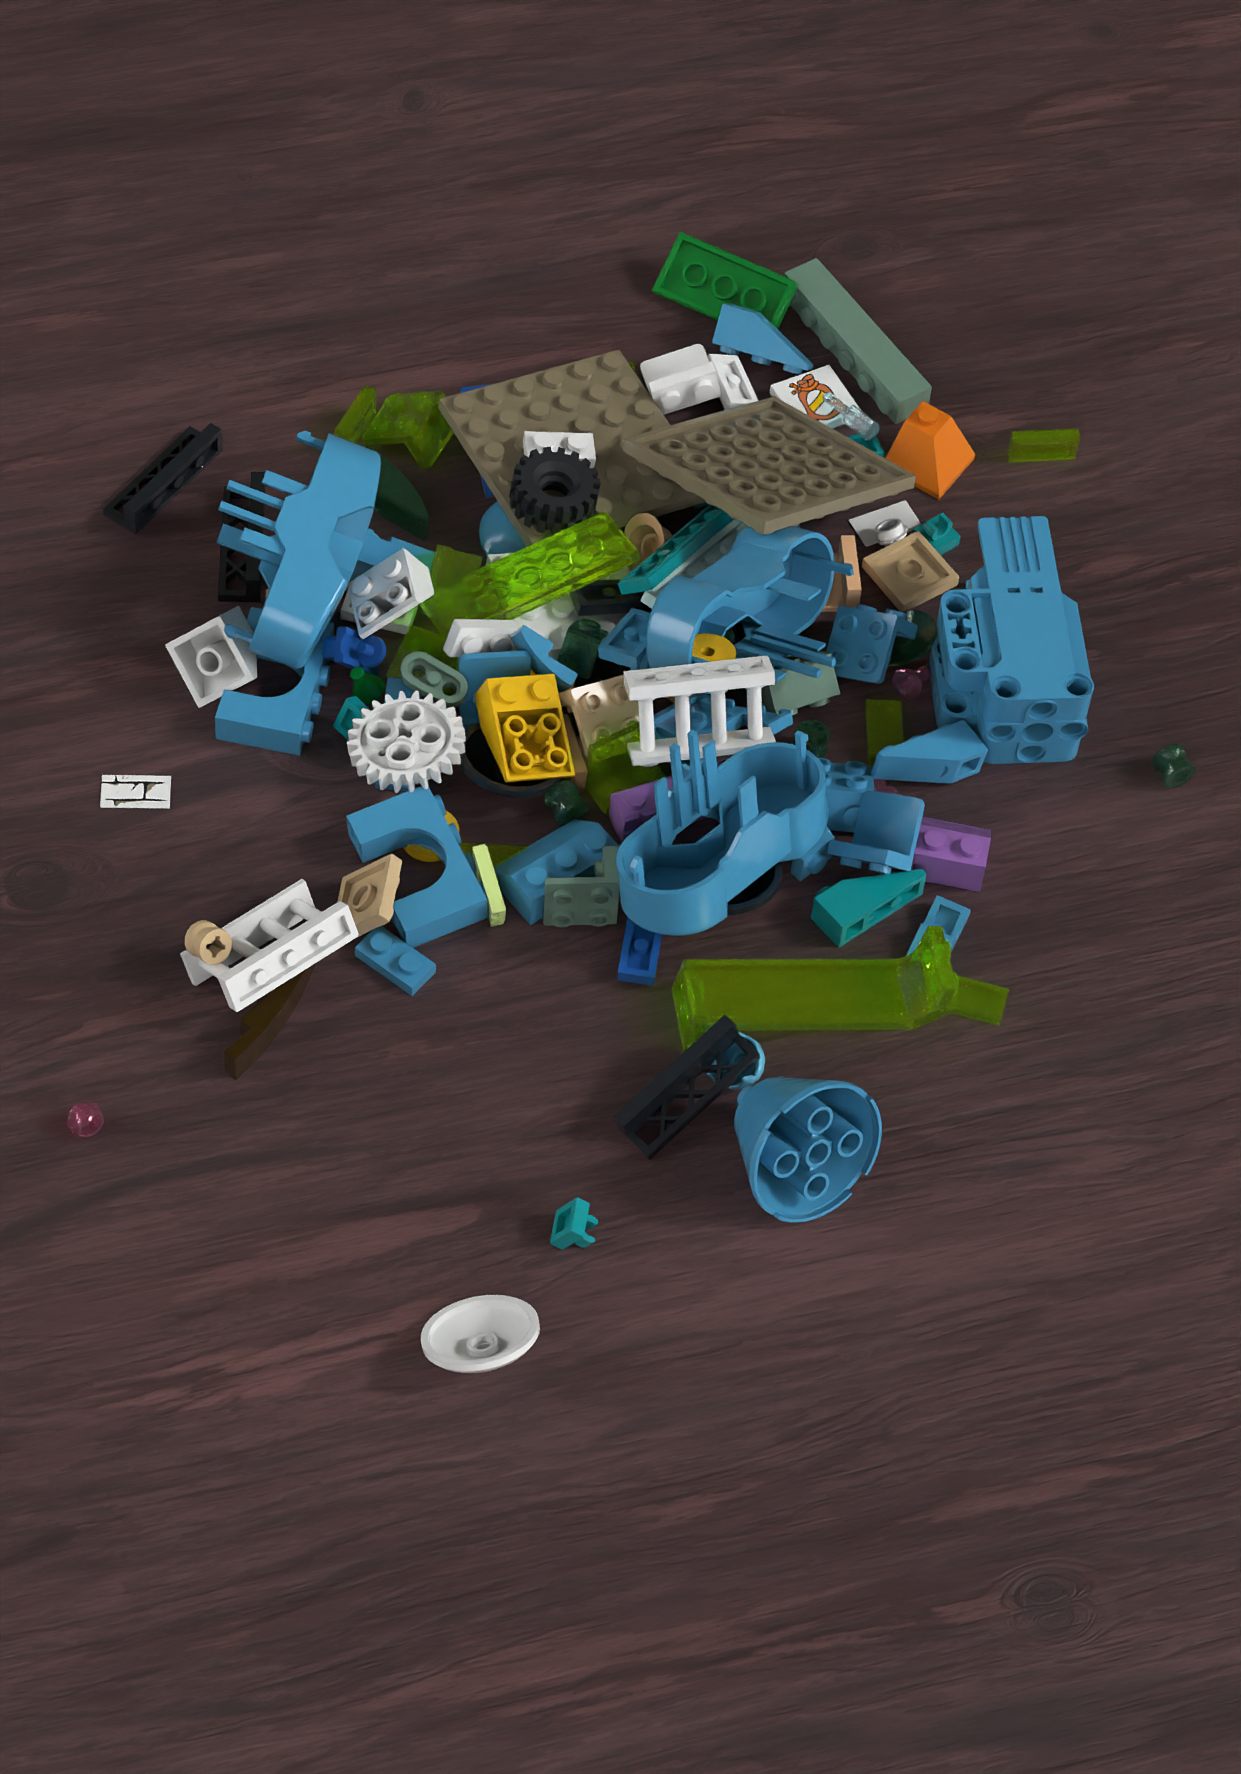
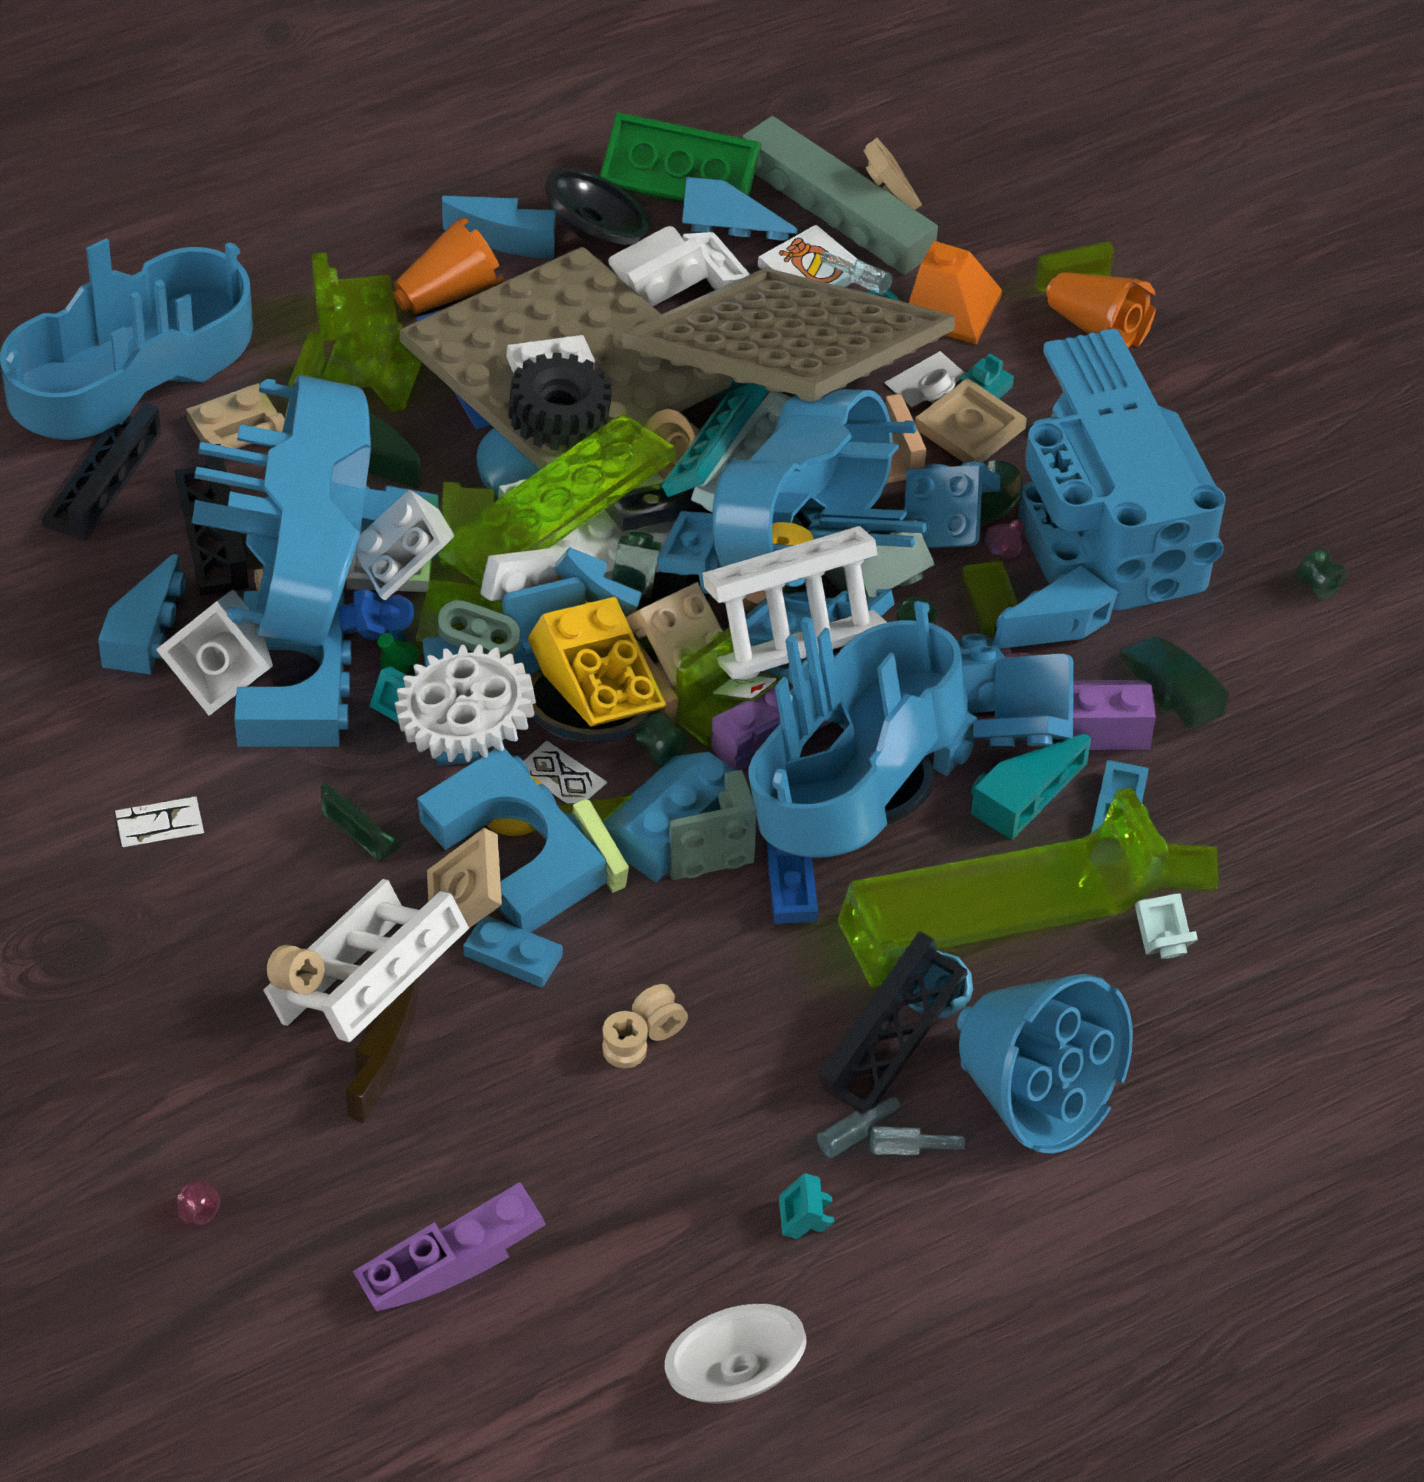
camera: 10 degrees left, 5 degrees down
(162, 614) = (140, 618): none -> dark azure slope
(208, 362) = (124, 336): none -> dark azure piece
(276, 1204) = (445, 1257): none -> medium lavender slope
(280, 453) = (220, 418): none -> tan plate
(297, 825) = (357, 823): none -> clear green slope
(409, 364) = (351, 303): none -> clear neon green bracket
(465, 1064) = (631, 1049): none -> tan wheel
(477, 816) = (563, 774): none -> white sticker
(497, 351) = (448, 271): none -> orange cone
(499, 1037) = (660, 1012): none -> tan wheel
(556, 316) = (504, 225): none -> dark azure slope
(633, 1167) = (853, 1128): none -> clear light blue axle
(640, 314) = (595, 207): none -> black dish
(644, 775) = (744, 689): none -> white sticker
(674, 1187) = (909, 1141): none -> clear light blue axle
(904, 328) = (885, 169): none -> tan plate
(942, 1049) = (1164, 926): none -> light aqua bracket
(1018, 837) = (1177, 680): none -> clear green slope
(1057, 489) = (1104, 303): none -> orange cone

